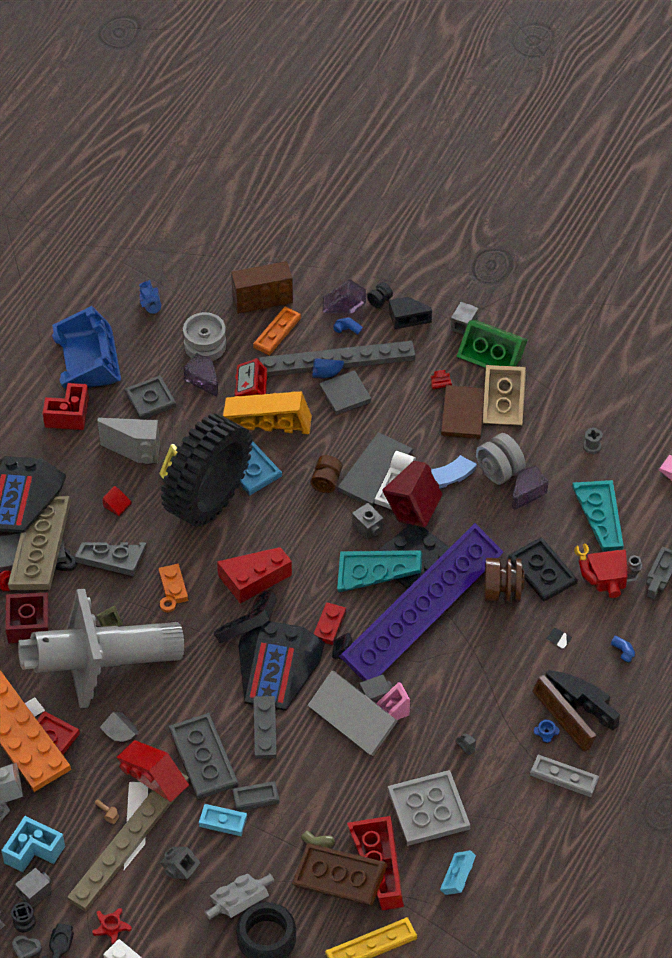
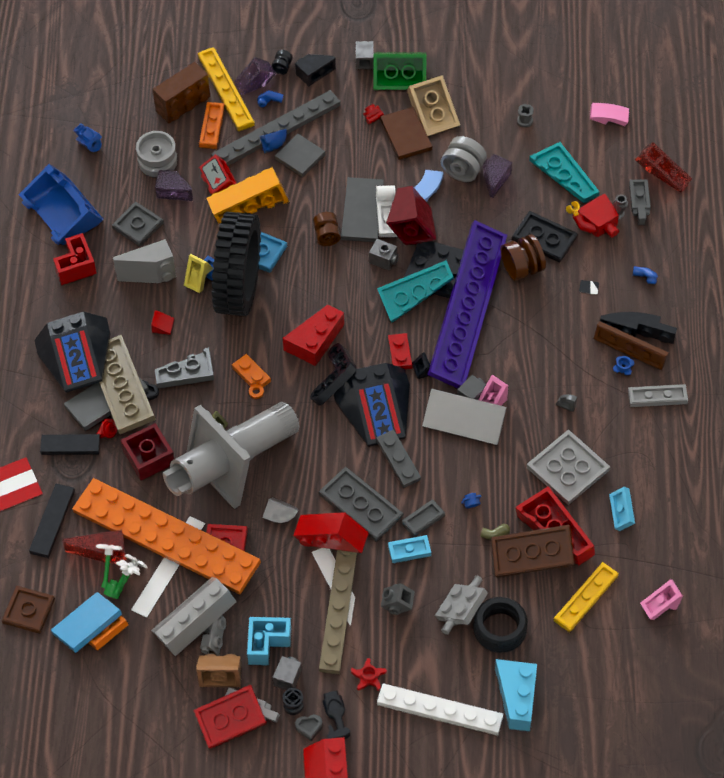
camera: 25 degrees left, 5 degrees up
(111, 813) = (314, 583): medium nougat hand -> none
(311, 301) = (226, 89): none -> yellow tile
(311, 798) = (471, 500): none -> blue plate

